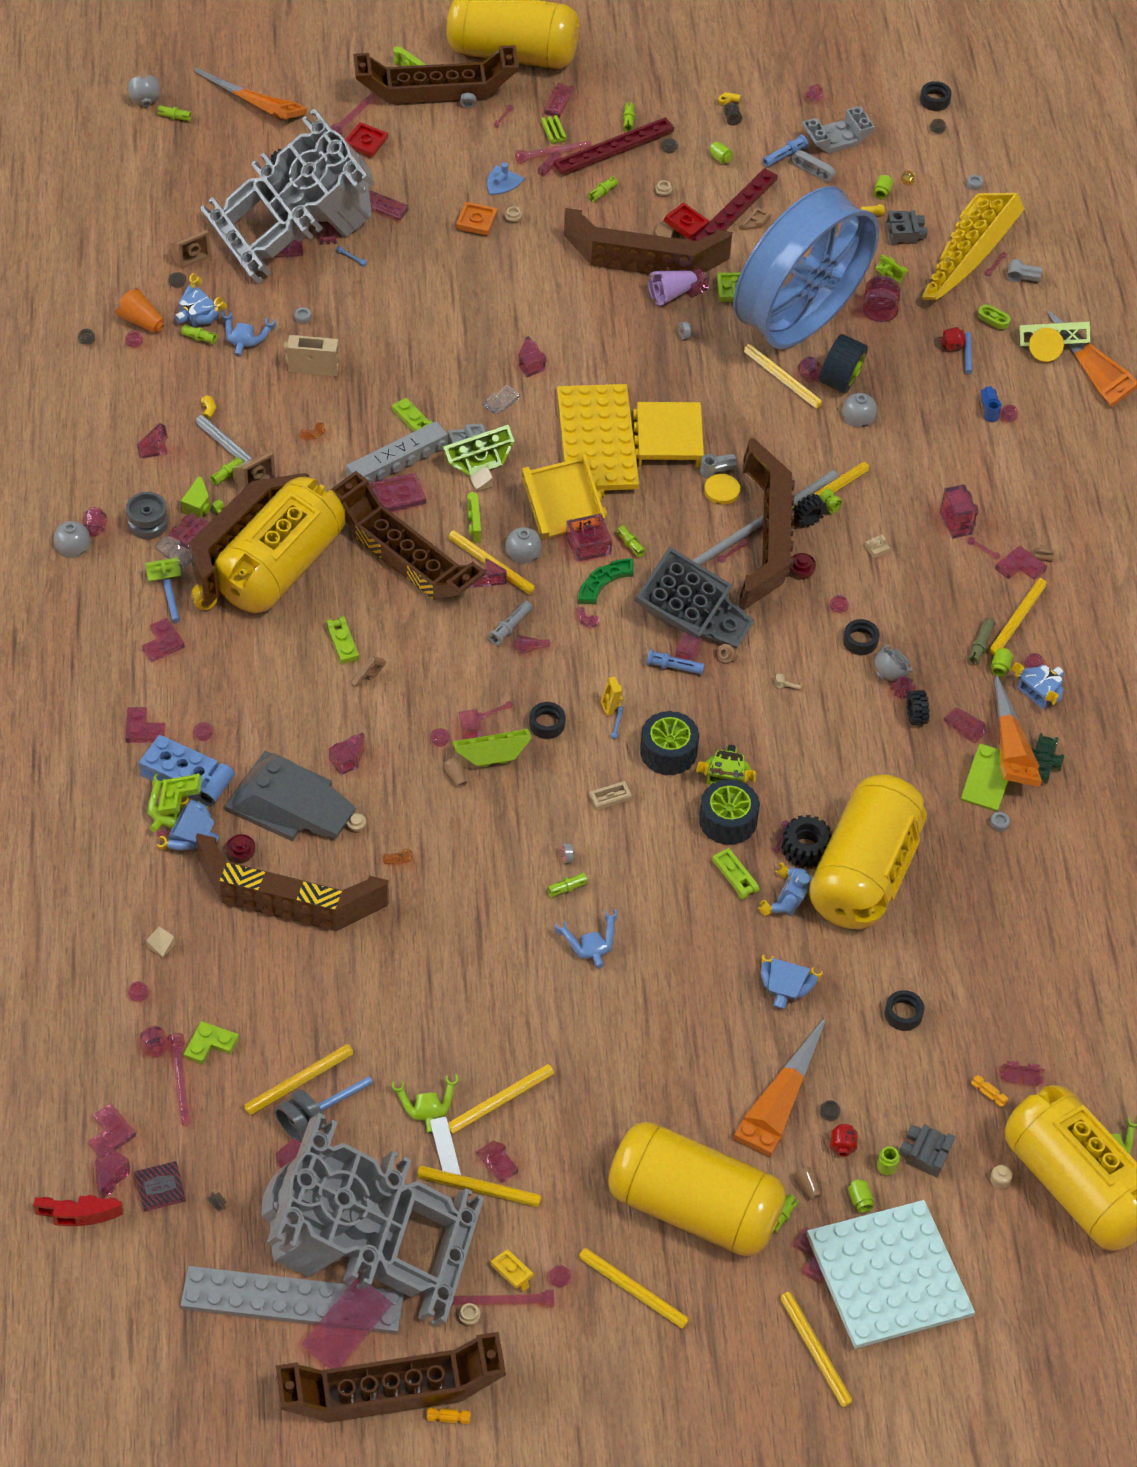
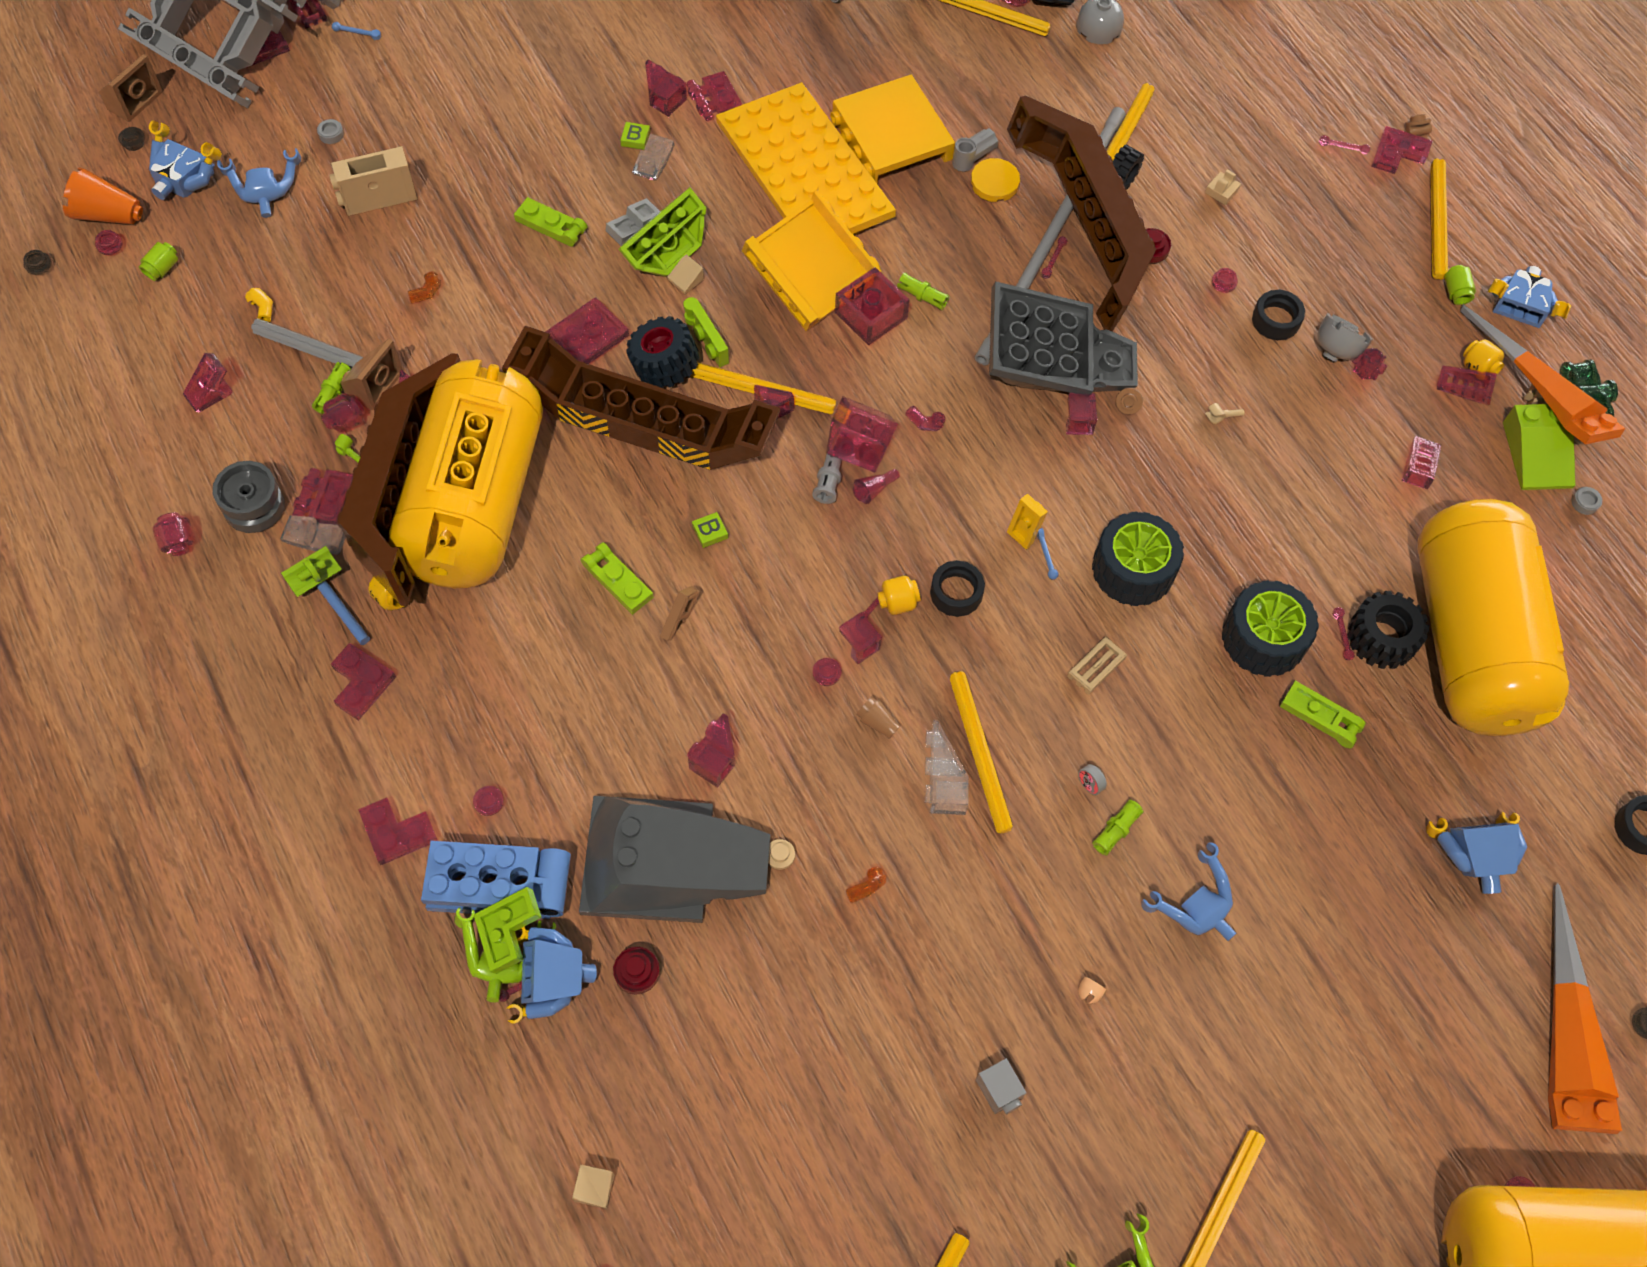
camera: 25 degrees left, 10 degrees up
(71, 539) = (152, 574): light grey cylinder -> none
(159, 360) = (158, 261): none -> lime brick
(196, 499) = (309, 446): lime slope -> none
(199, 334) = (198, 204): lime pin -> none
(226, 487) = (342, 412): none -> clear pink head
(288, 896) = (738, 1029): reddish brown slope -> none
(400, 453) = (559, 279): light grey brick -> none
(413, 633) = (710, 529): none -> lime tile
(415, 985) = (1001, 1087): none -> light grey brick
(439, 519) = (663, 352): none -> black wheel
(476, 822) = (947, 775): none -> clear slope
(493, 748) = (911, 657): lime wedge -> none
(496, 381) = (635, 135): none -> lime tile
(498, 959) = (1091, 990): none -> light nougat hinge
(507, 710) = (899, 595): none -> yellow head
(508, 814) = (981, 753): none -> yellow axle
(523, 545) = (789, 347): light grey cylinder -> none
(535, 609) = (860, 434): none -> clear pink slope
(568, 371) = (719, 91): none -> clear pink plate
(601, 577) = (912, 354): green tile -> none
(666, 660) = (1059, 440): medium blue pin -> none
(725, 766) = (1230, 565): torso -> none
(791, 893) = (1415, 708): medium blue torso -> none
(832, 502) = (1140, 145): lime wheel -> none
(894, 768) = (1416, 476): none -> clear pink slope
(918, 707) = (1408, 384): black tyre -> none
(958, 511) = (1298, 107): clear pink brick -> none
(979, 646) = (1420, 272): olive pin -> none
(985, 710) = (1484, 357): none -> yellow head
(1034, 660) = (1494, 269): clear pink plate -> none

